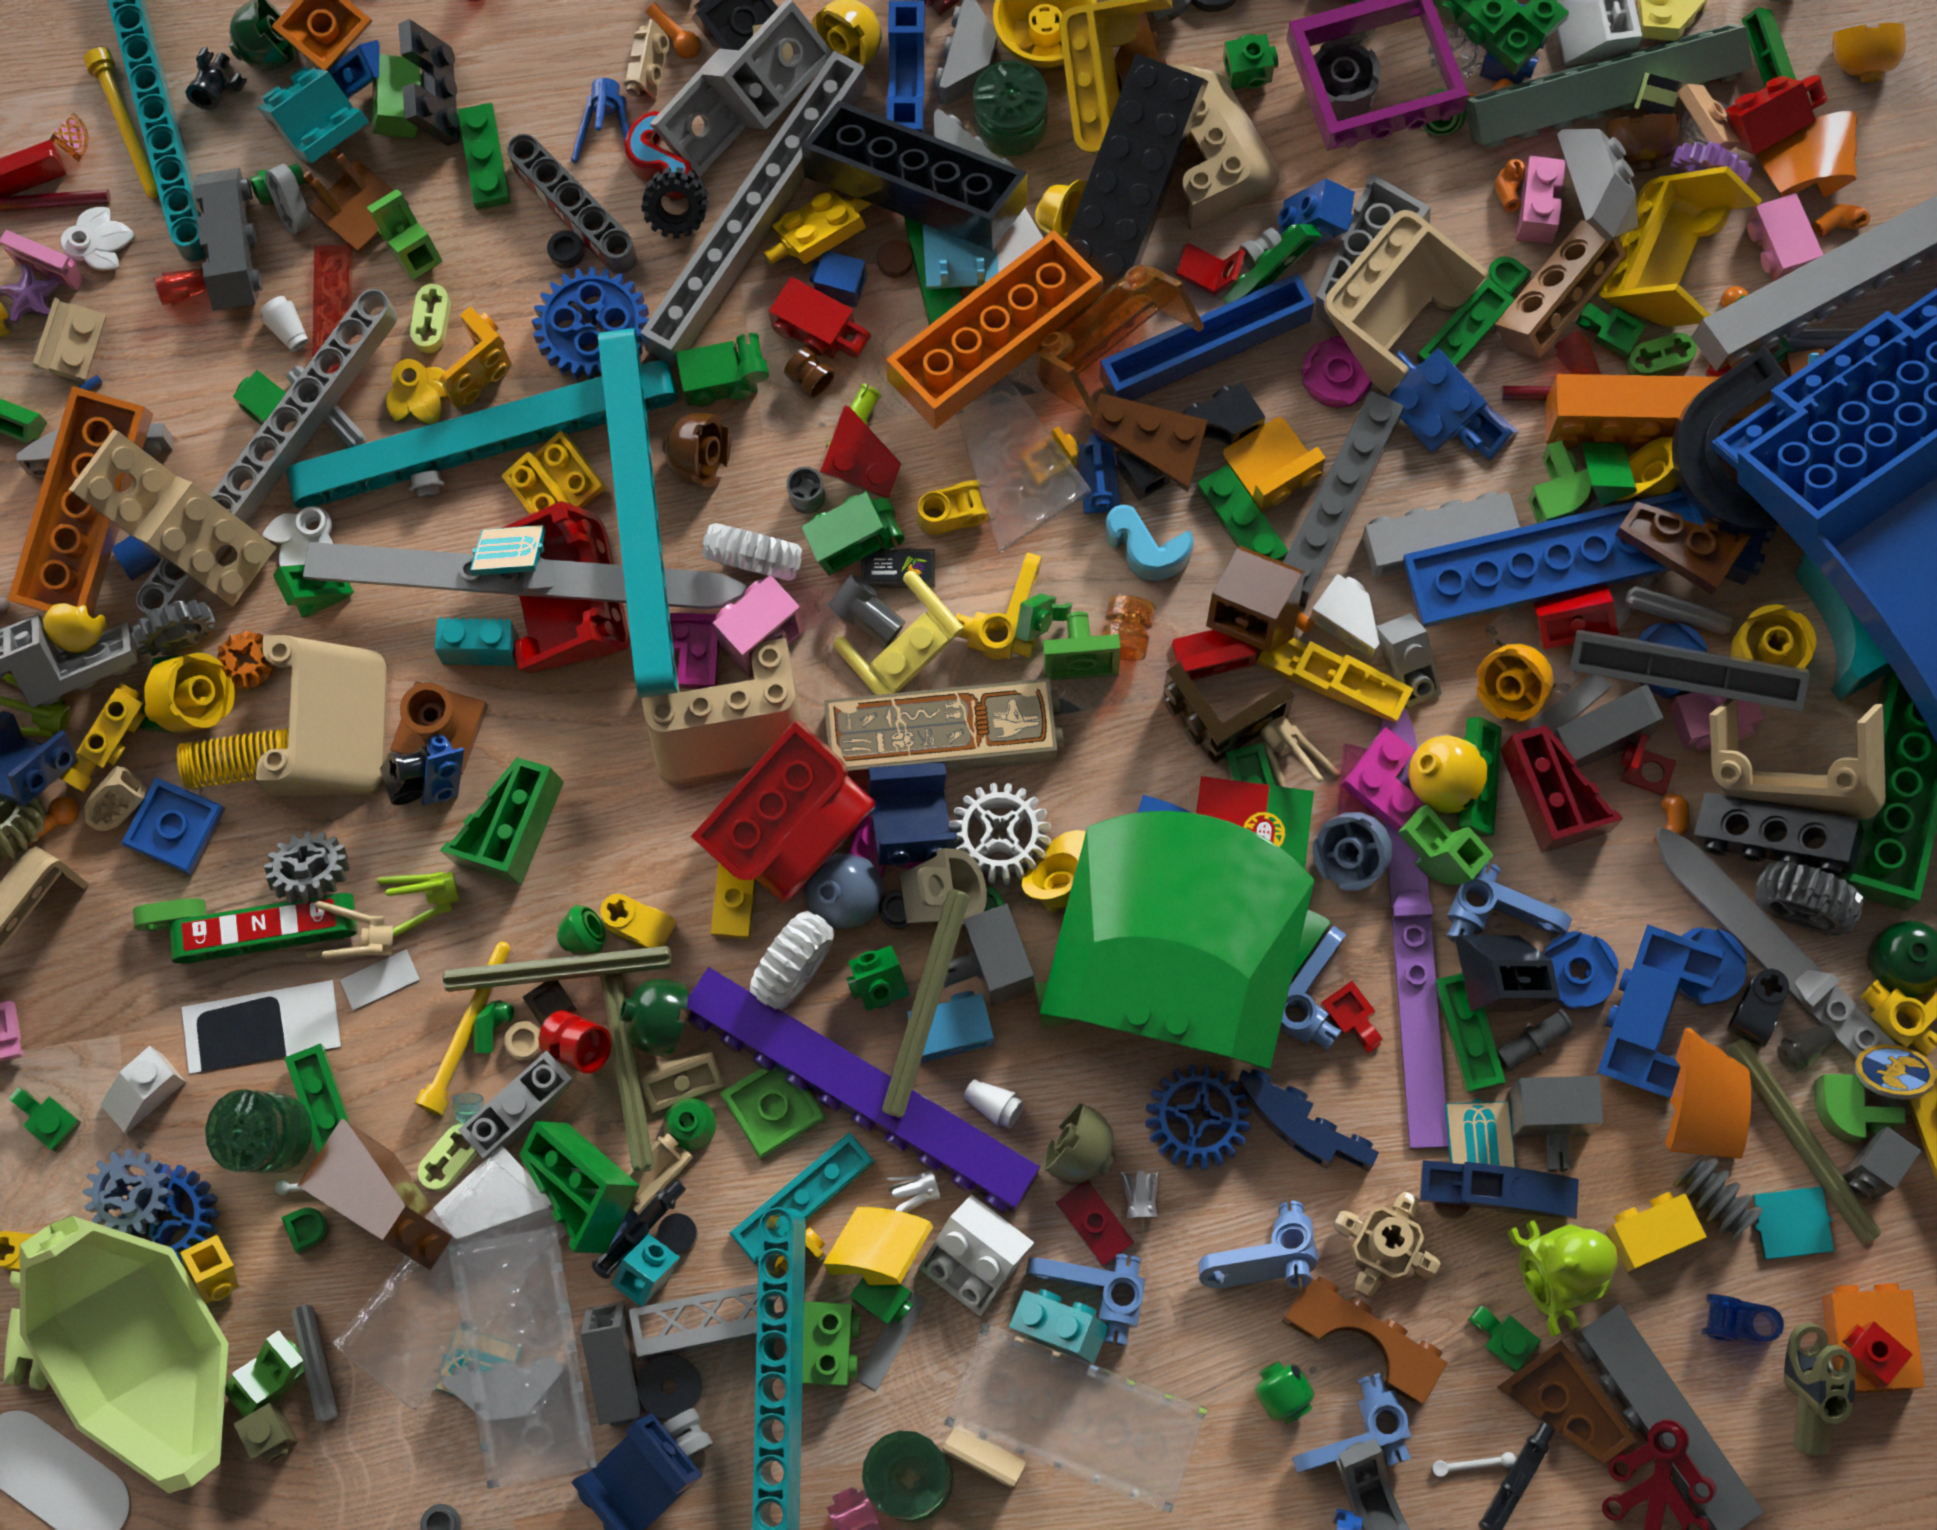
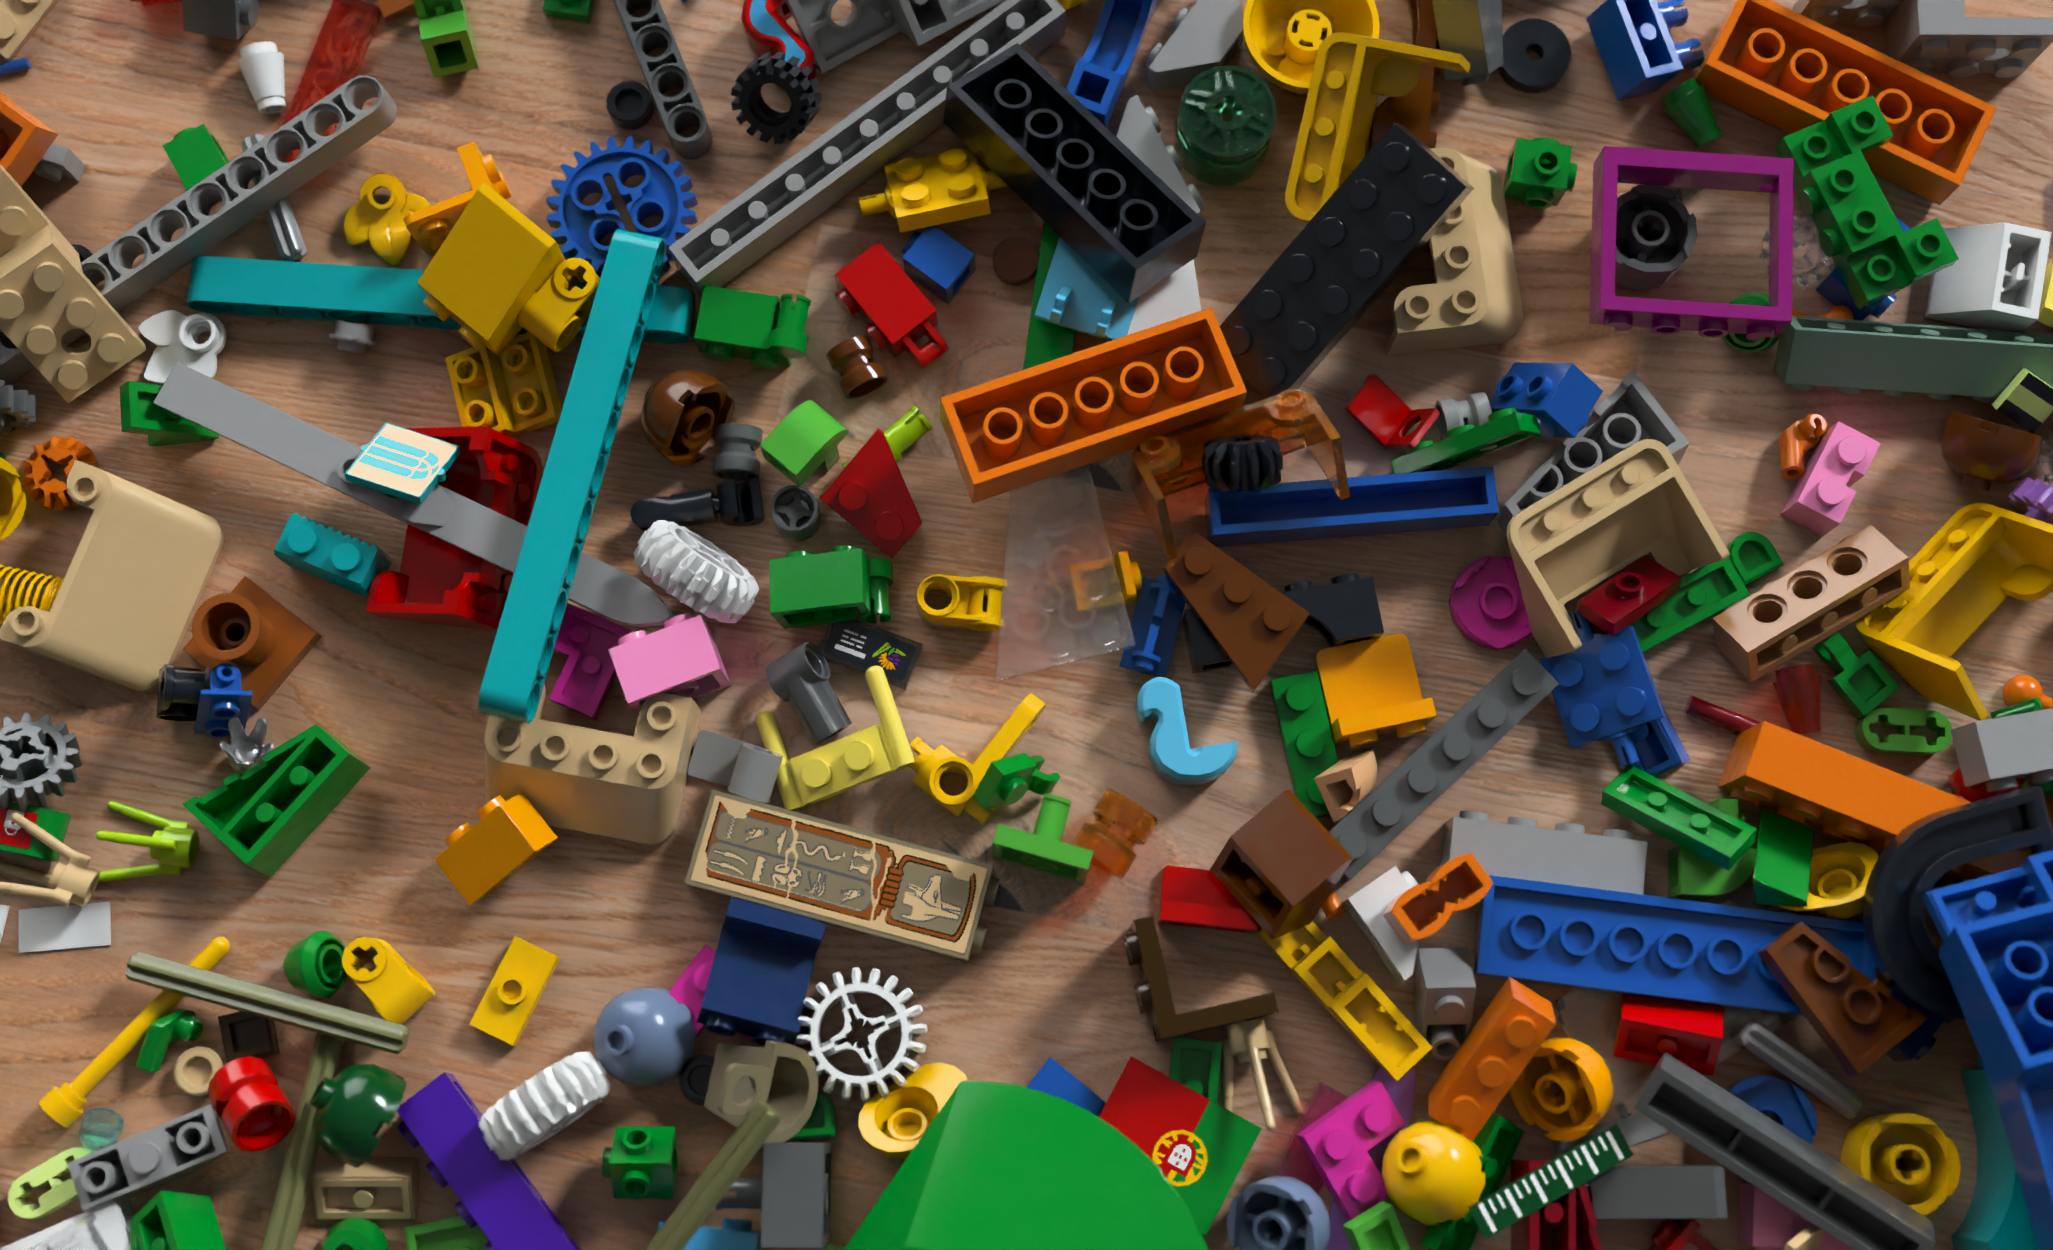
camera: 15 degrees right, 5 degrees up
(423, 317) = (432, 128): yellowish green beam -> none
(468, 799) = (245, 748): none -> flat silver piece
(520, 392) = (489, 270): none -> yellow slope
(578, 405) = (557, 308): none -> yellow piece
(681, 798) = (495, 847): none -> light orange brick
(745, 462) = (737, 452): none -> dark grey wheel
(759, 499) = (736, 504): none -> black piece
(786, 815) = (602, 925): red brick -> none
(794, 434) = (804, 442): none -> bright green brick
(831, 681) = (740, 766): none -> light grey panel
(1059, 207) = (1233, 274): yellow piece -> none
(1118, 332) = (1242, 463): none -> black gear
(1281, 530) = (1348, 782): none -> light nougat brick
(1379, 576) = (1430, 904): none -> orange brick
(1429, 329) = (1629, 595): none -> dark red plate
(1457, 678) = (1491, 1059): none -> orange brick
(1524, 467) = (1679, 817): none -> green plate
(1532, 743) = (1550, 1181): none -> dark green sticker
(1601, 180) = (1914, 487): light grey wedge -> none

